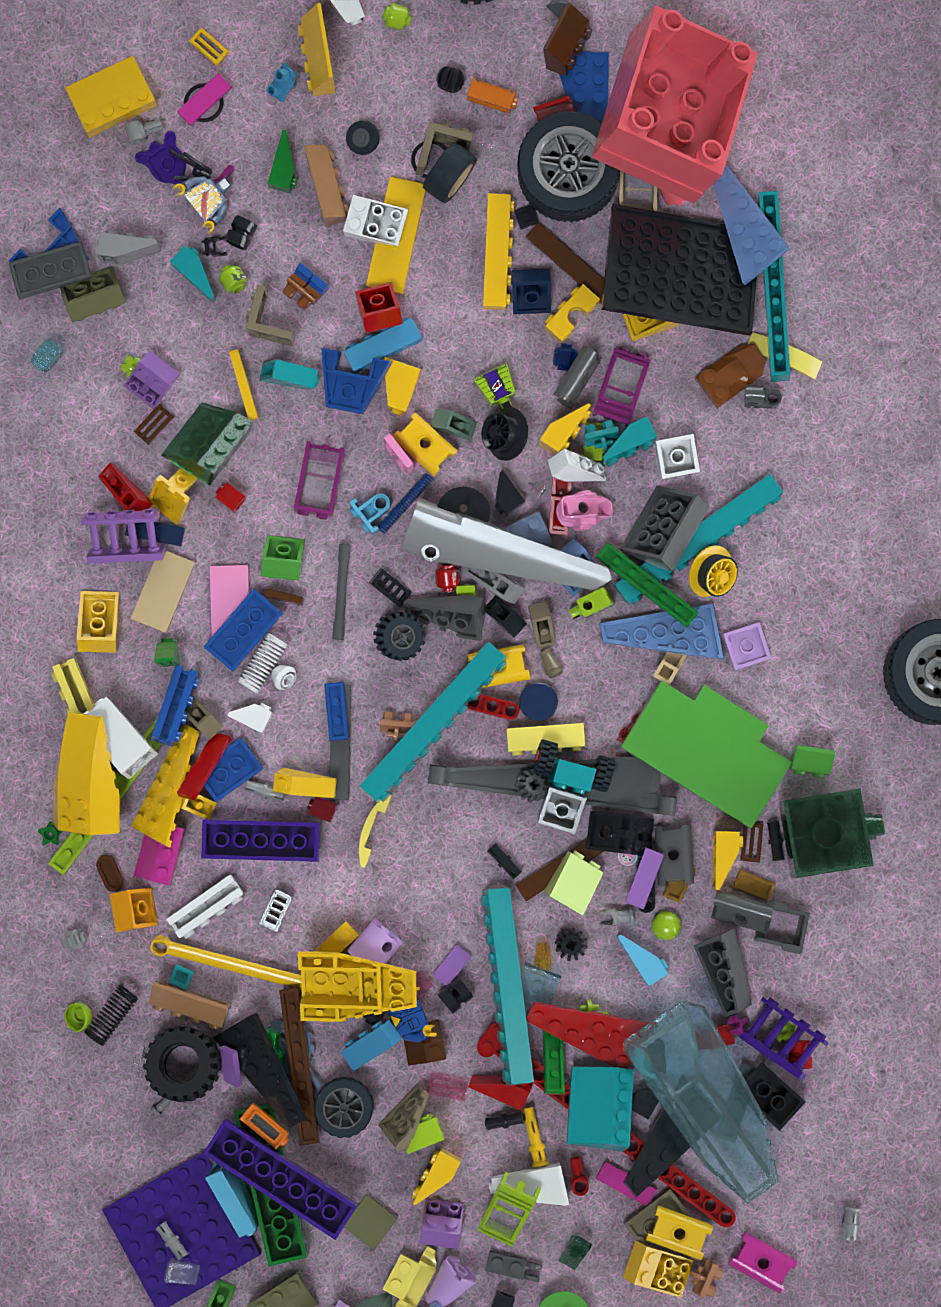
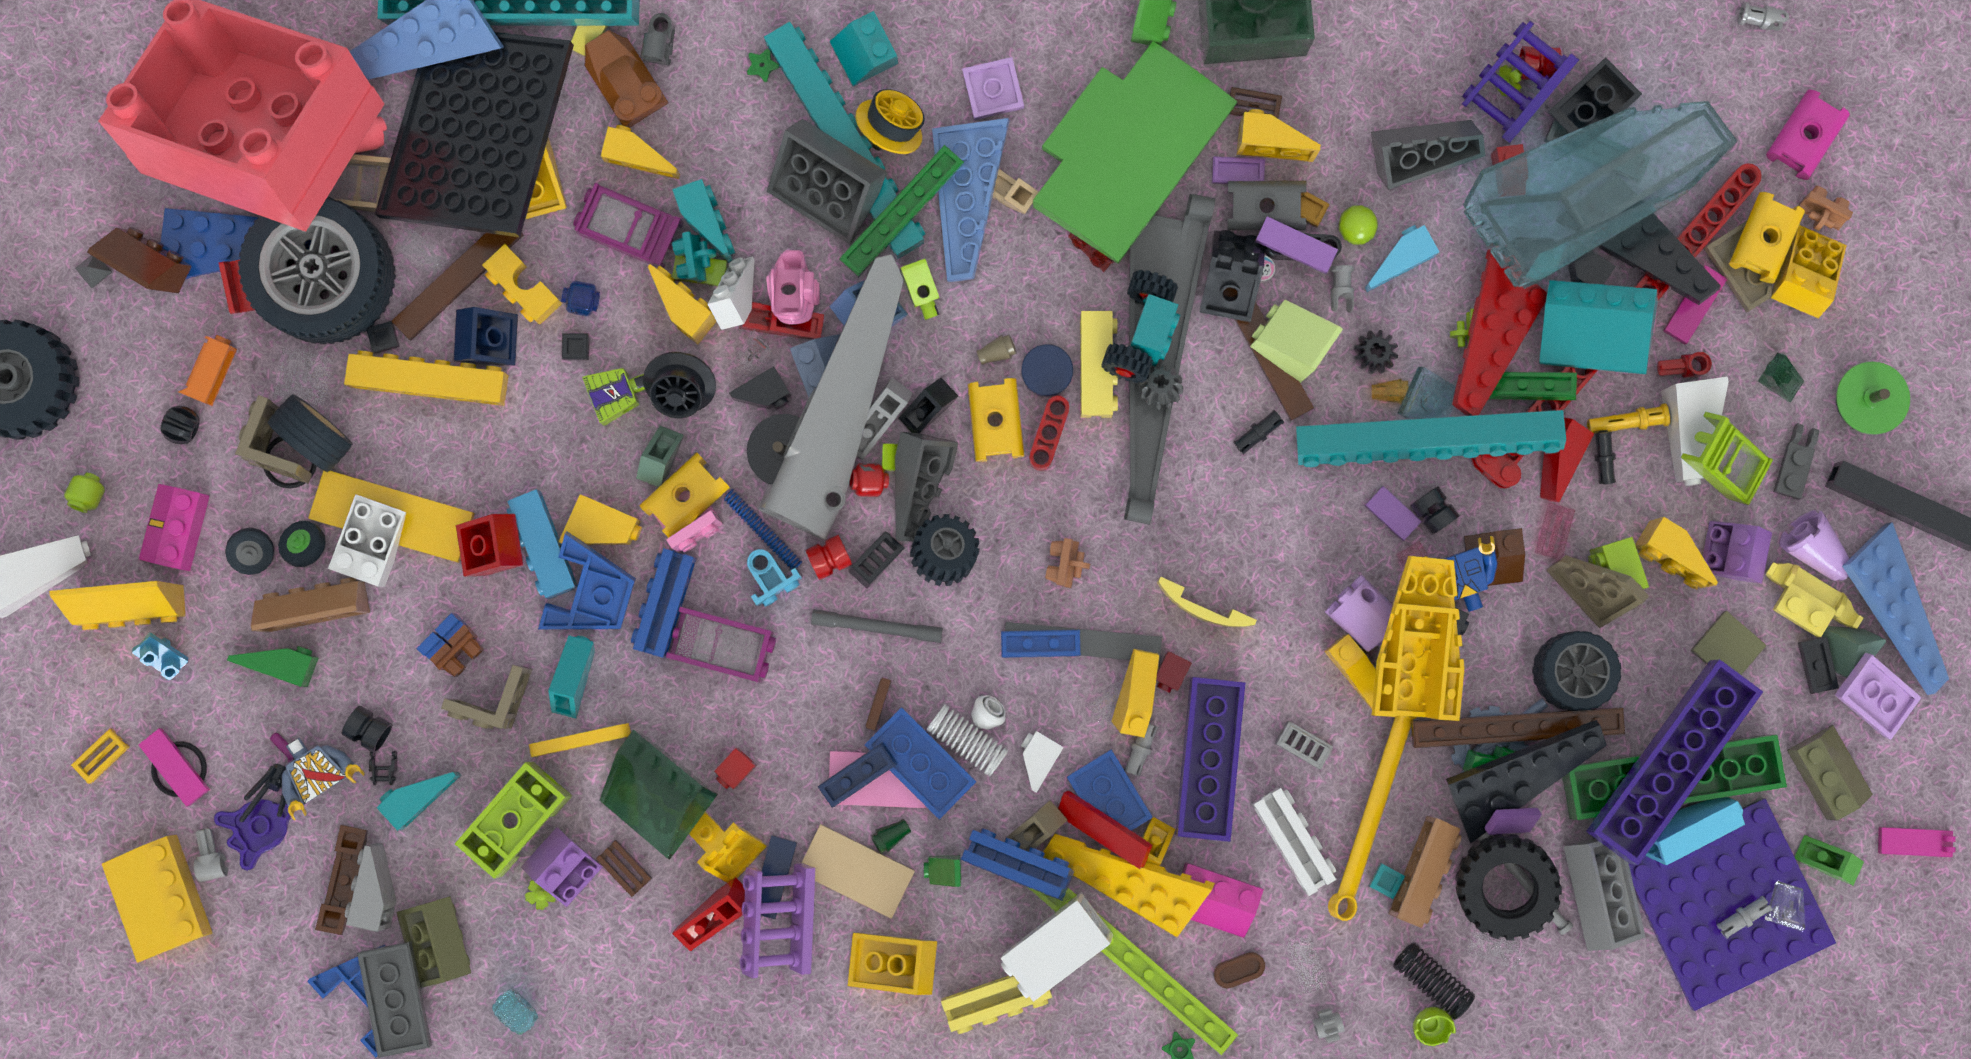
camera: 85 degrees left, 0 degrees up
(83, 780) = (1113, 996): yellow wedge -> none
(125, 224) = (345, 867): none -> reddish brown slope
(133, 909) = (1293, 940): light orange slope -> none
(179, 1137) = (1603, 896): none -> light grey slope
(189, 613) = (890, 835): none -> dark green cone
(200, 352) = (533, 799): none -> lime plate
(231, 585) = (857, 775): none -> dark blue tile
(233, 279) = (430, 744): lime head -> none
(265, 1126) = (1601, 777): orange window -> none
(282, 557) = (824, 702): bright green slope -> none
(349, 437) = (663, 604): none -> blue brick
(361, 1290) = (1818, 665): none -> black plate
(370, 174) = (301, 543): none -> black wheel
(370, 1044) = (1496, 627): dark azure brick -> none
(376, 82) = (174, 527): none -> dark pink slope
(388, 552) = (828, 557): none -> red wheel
(433, 723) = (1067, 511): teal brick -> none
(530, 356) = (575, 346): none -> black tile
(542, 624) = (943, 357): dark tan slope -> none
(561, 810) = (1197, 349): light grey slope -> none
(577, 377) = (609, 283): dark grey piece -> none
(676, 456) = (730, 158): white slope -> none
(678, 381) = (630, 151): none -> yellow slope
(700, 833) = (1237, 169): none -> medium lavender tile
(738, 1023) = (1493, 139): magenta bar -> none
(742, 911) = (1348, 120): dark grey piece -> none
(750, 479) = (769, 65): none -> green plate
(754, 885) = (1311, 105): pearl gold tile -> none
(768, 548) = (864, 49): none -> teal slope
(775, 841) = (1255, 72): black pin -> none
(800, 934) = (1376, 48): dark grey piece -> none

